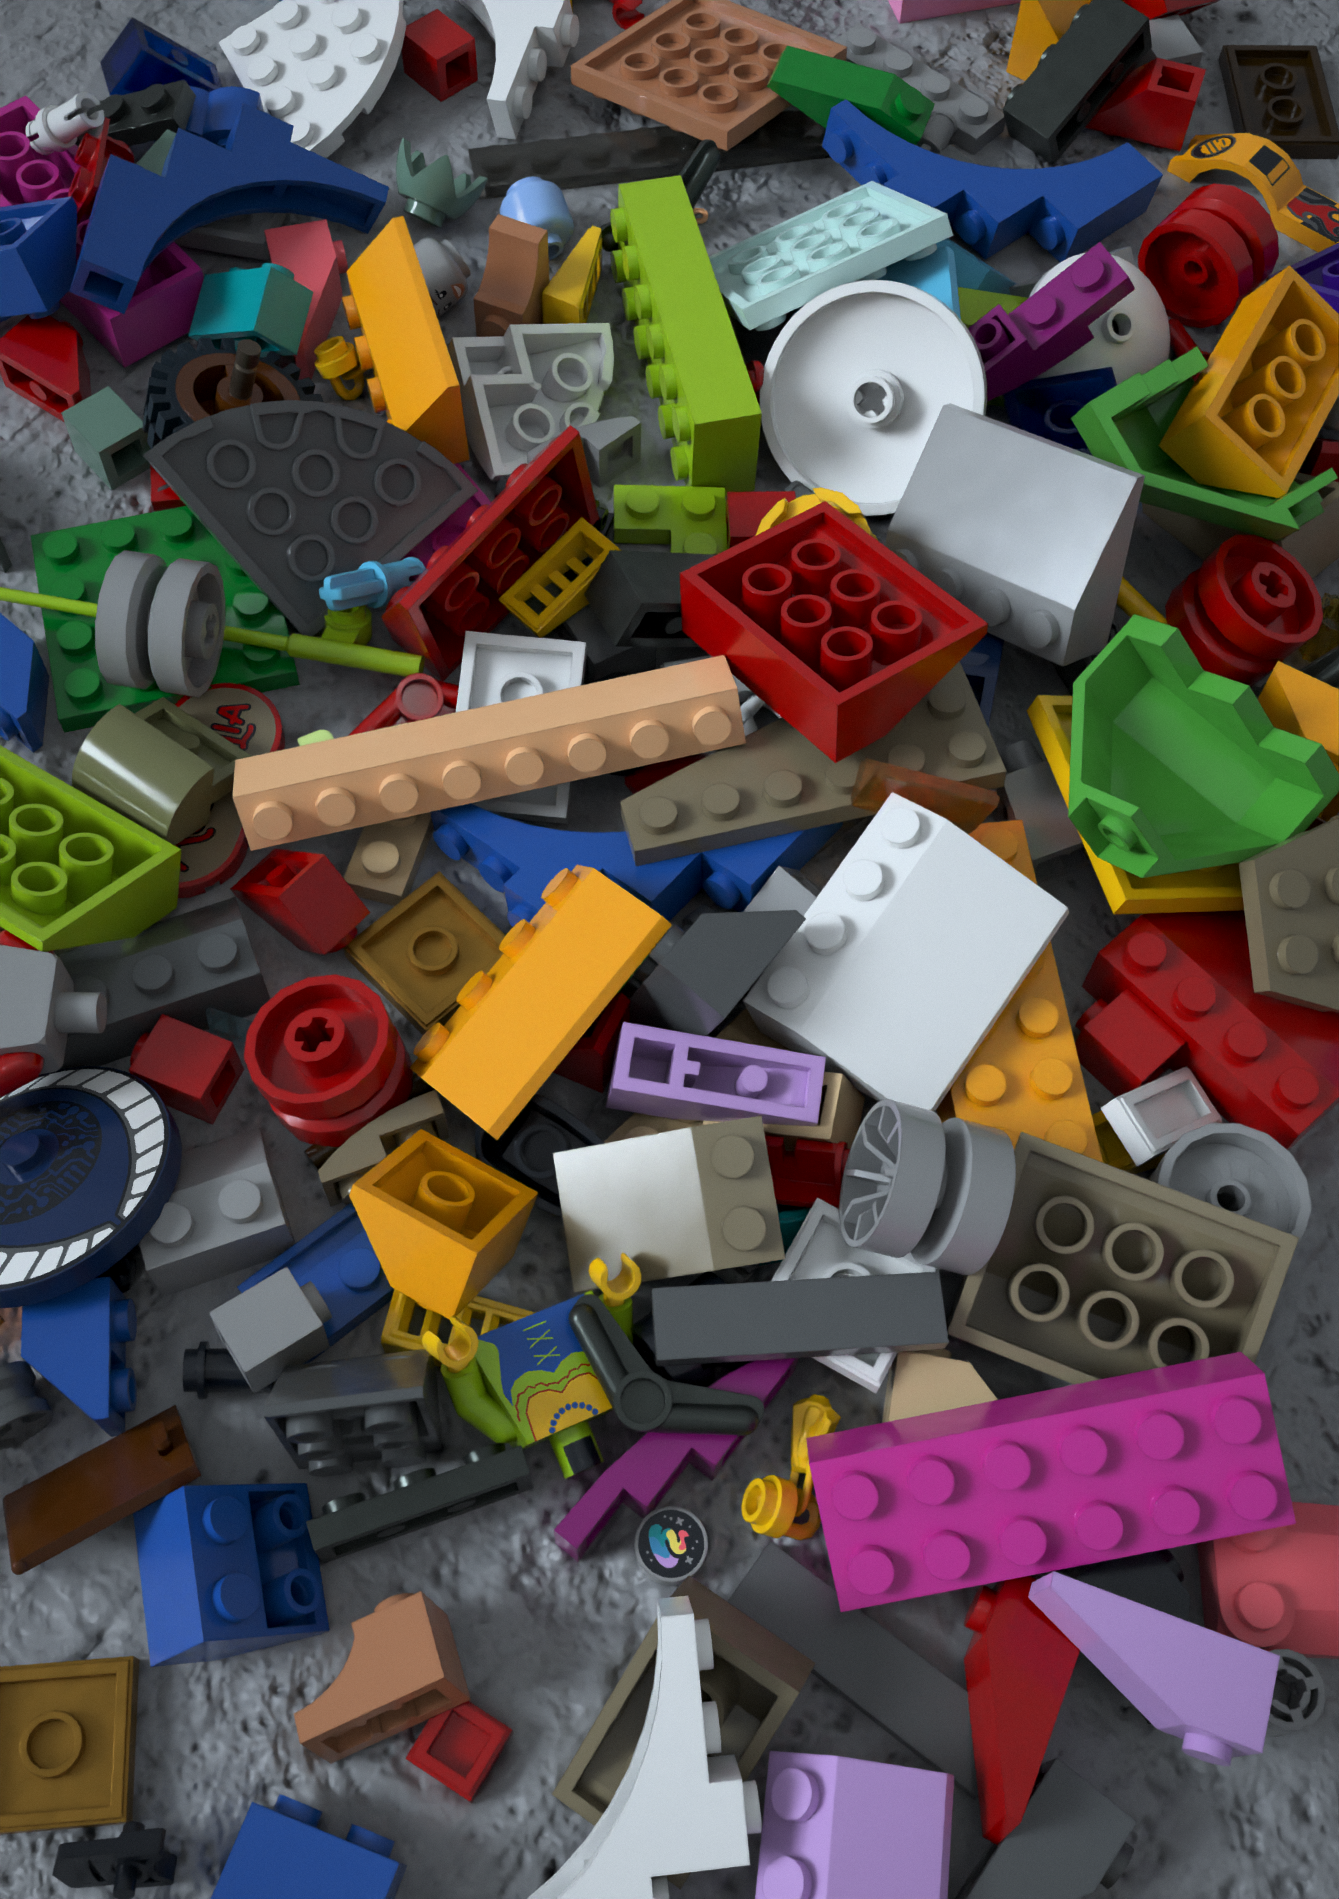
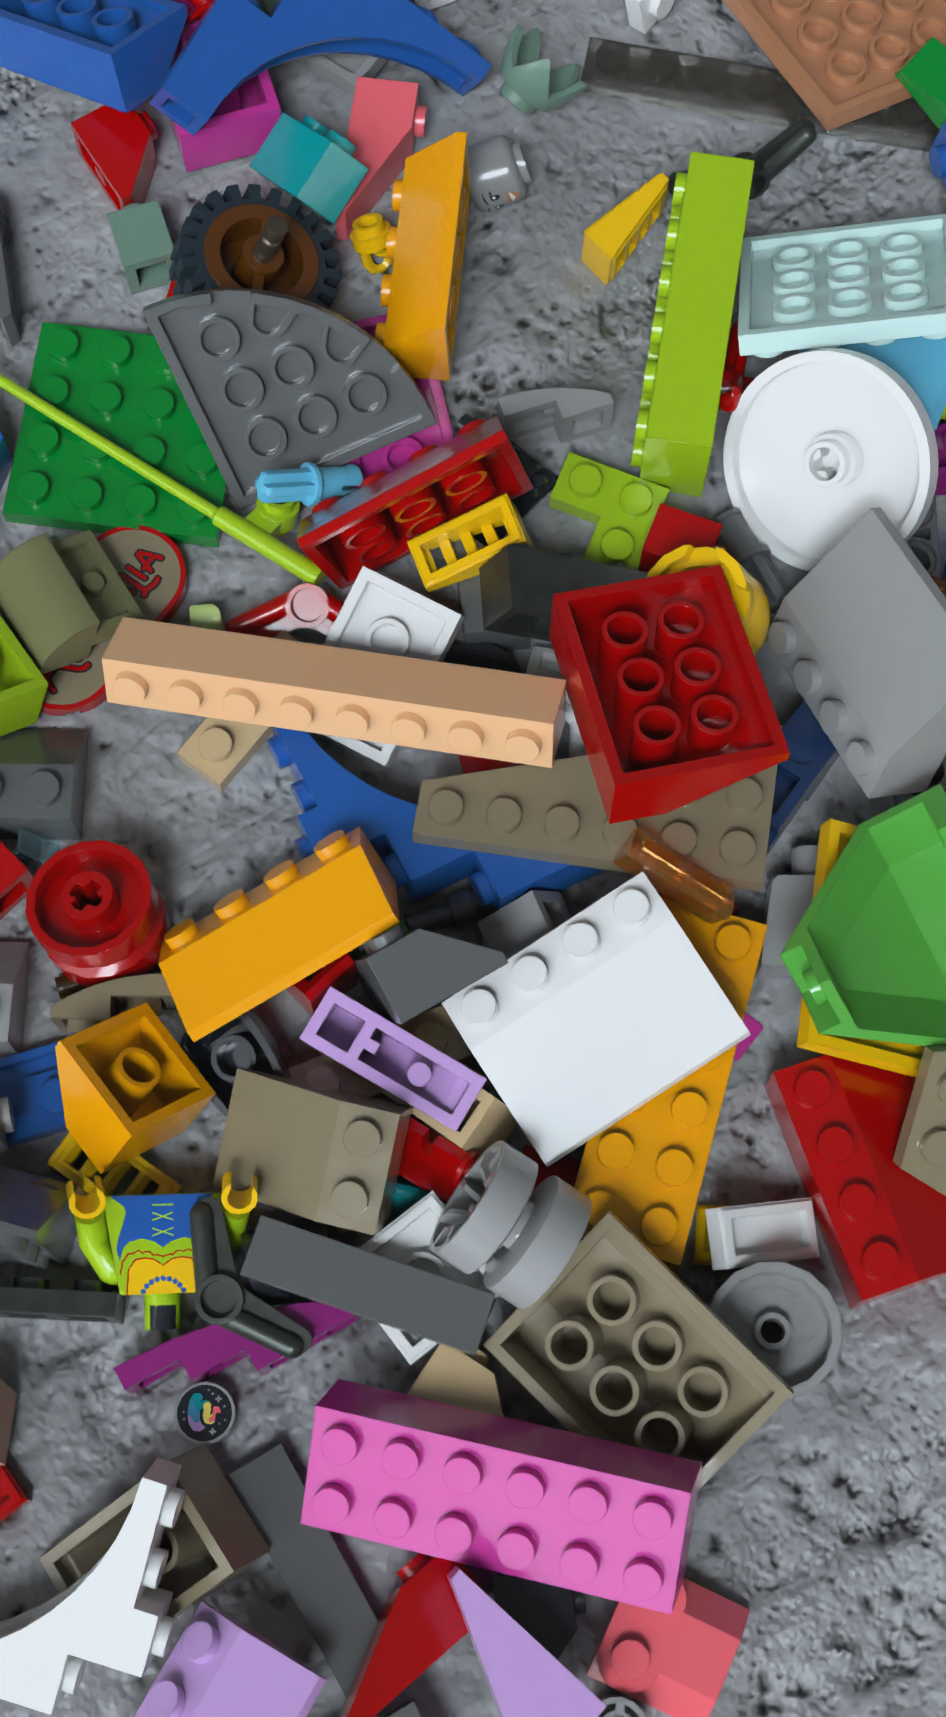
camera: 25 degrees right, 10 degrees up
(160, 623) = (106, 469): light grey wheel -> none
(303, 900) = (136, 759): red slope -> none
(426, 951) = (223, 841): pearl gold tile -> none
(512, 277) = (555, 221): nougat arch -> none
(529, 387) = (534, 326): white brick -> none
(543, 206) = (619, 140): light blue head -> none
(702, 211) = (777, 184): light nougat piece -> none
(775, 1501) = (294, 1413): yellow piece -> none
(1125, 1043) = (766, 1157): red brick -> none

